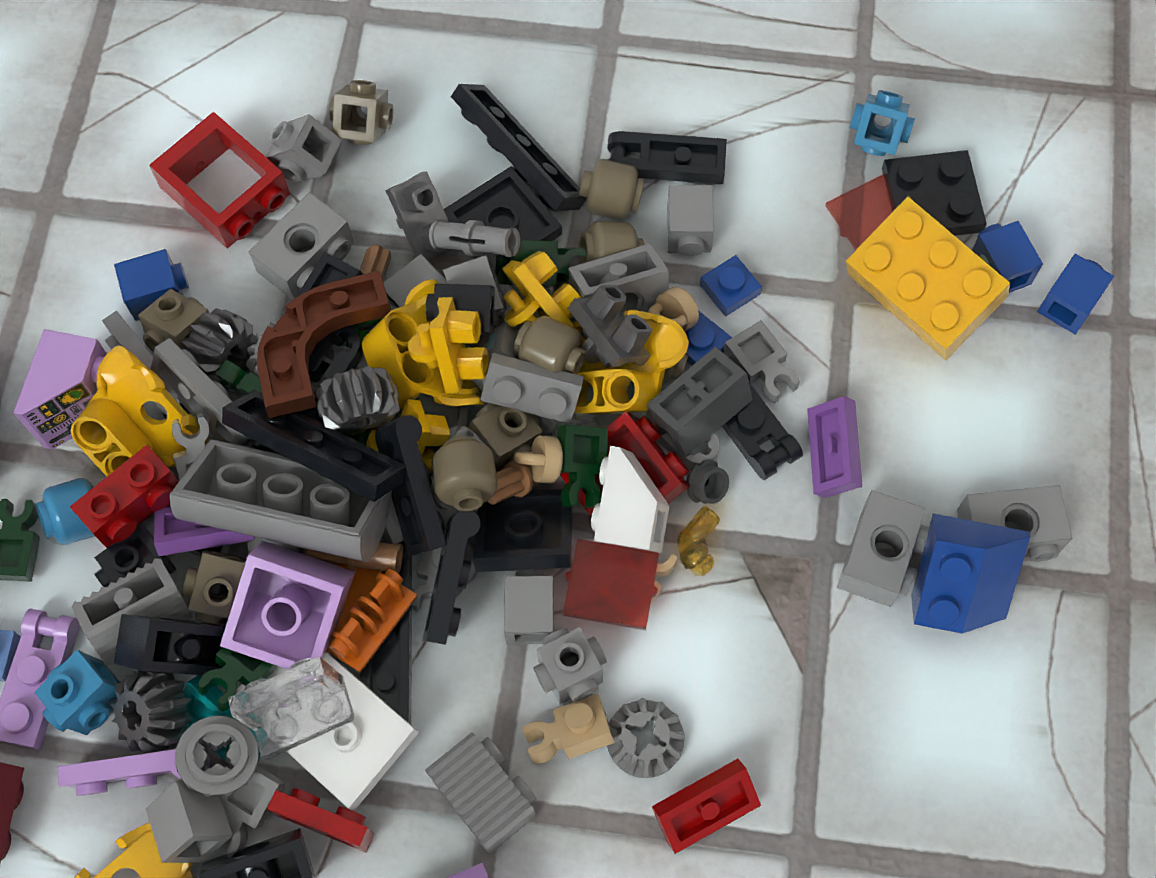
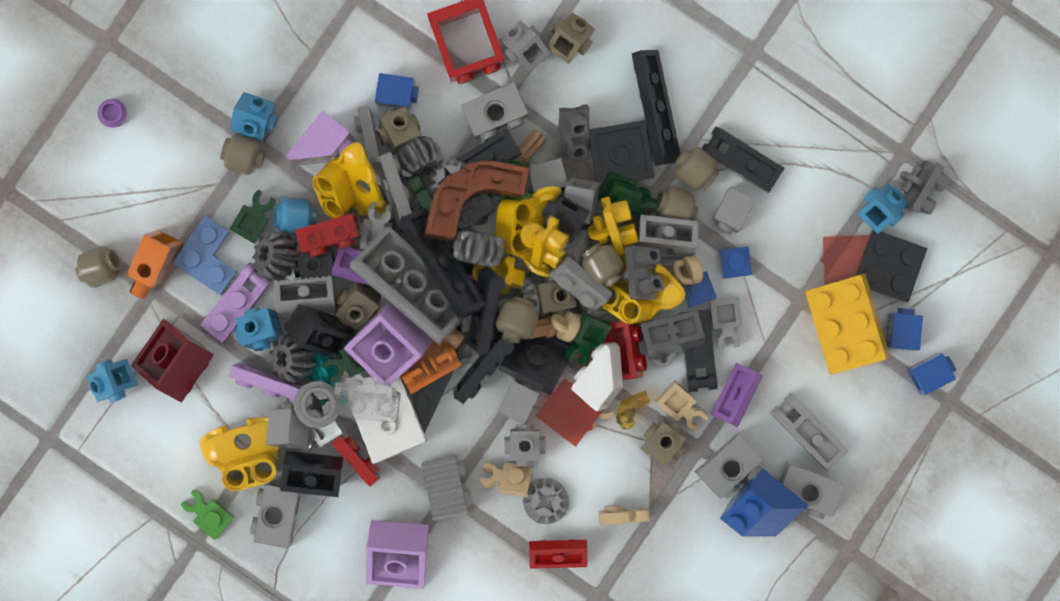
camera: 25 degrees right, 20 degrees up
(61, 573) = (275, 255): none -> flat silver gear
(474, 238) = (594, 171): light grey pin -> none
(707, 482) = (654, 379): dark grey plate -> none
(759, 499) = (679, 403): none -> tan plate
(760, 702) = (615, 515): none -> tan plate
(771, 559) = (673, 449): none -> dark tan brick
(912, 77) = (919, 185): none -> flat silver hips
(963, 449) = (809, 432): none -> light grey plate

